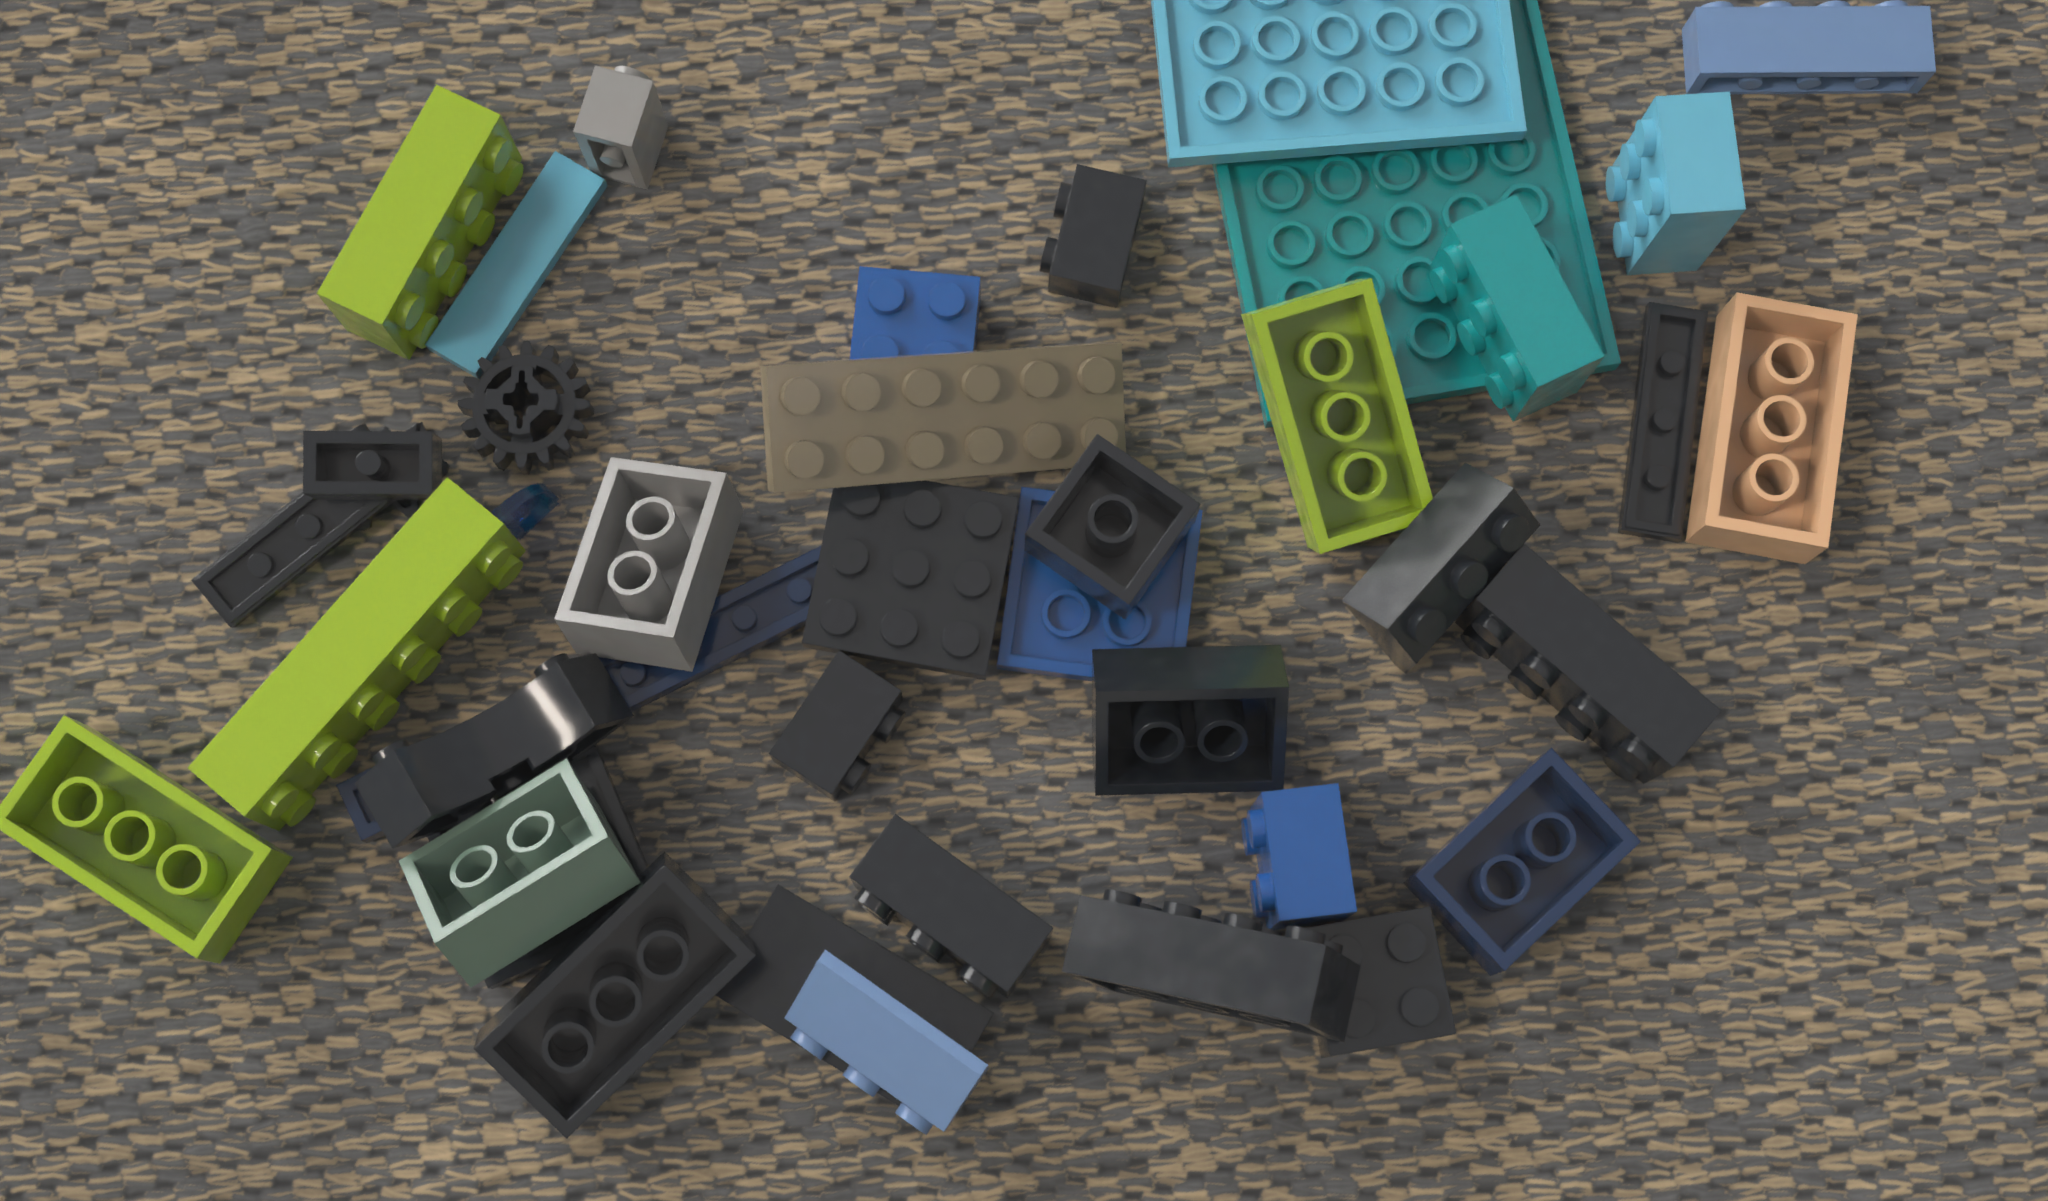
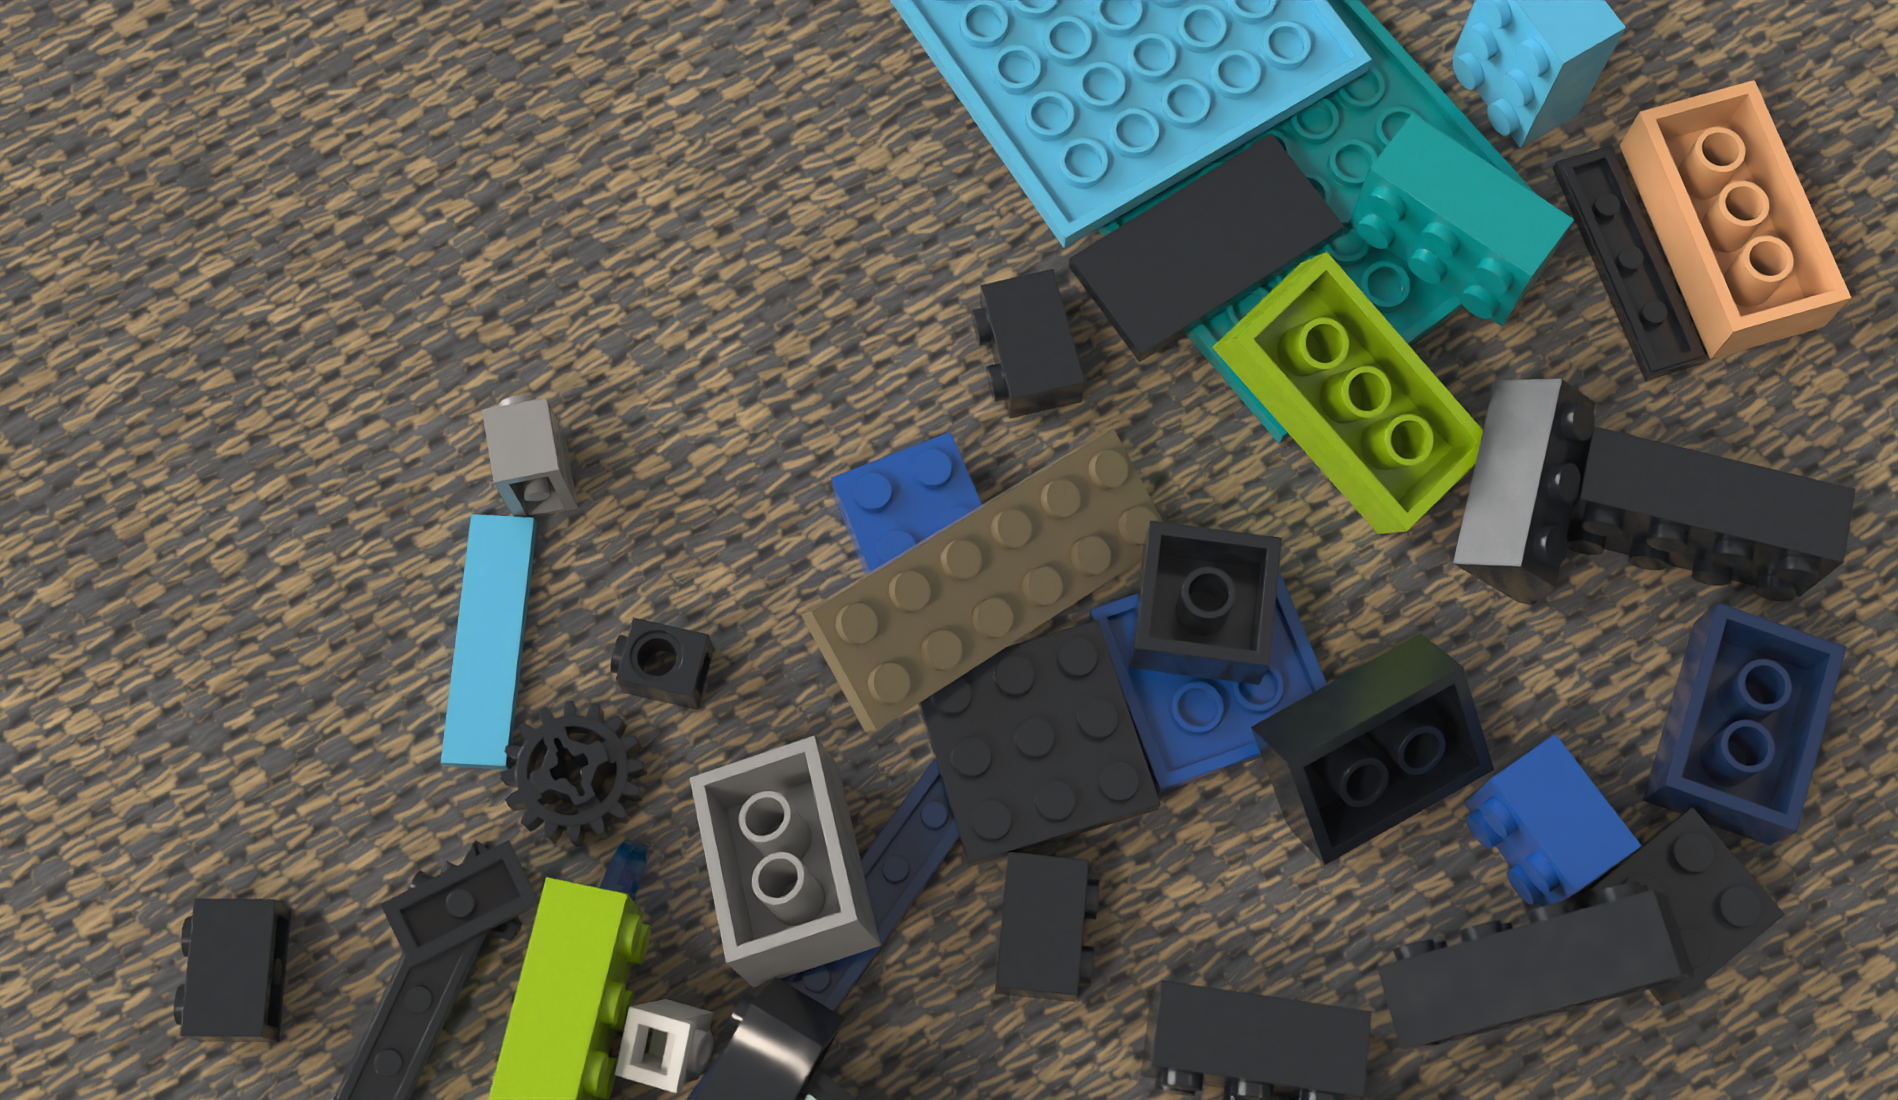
camera: 25 degrees left, 5 degrees down
(177, 429) = (233, 970): none -> black brick
(423, 223) = (384, 646): lime brick -> none
(493, 673) = (678, 1045): none -> white brick
(662, 372) = (686, 679): none -> black brick
(1291, 225) = (1205, 247): none -> black tile

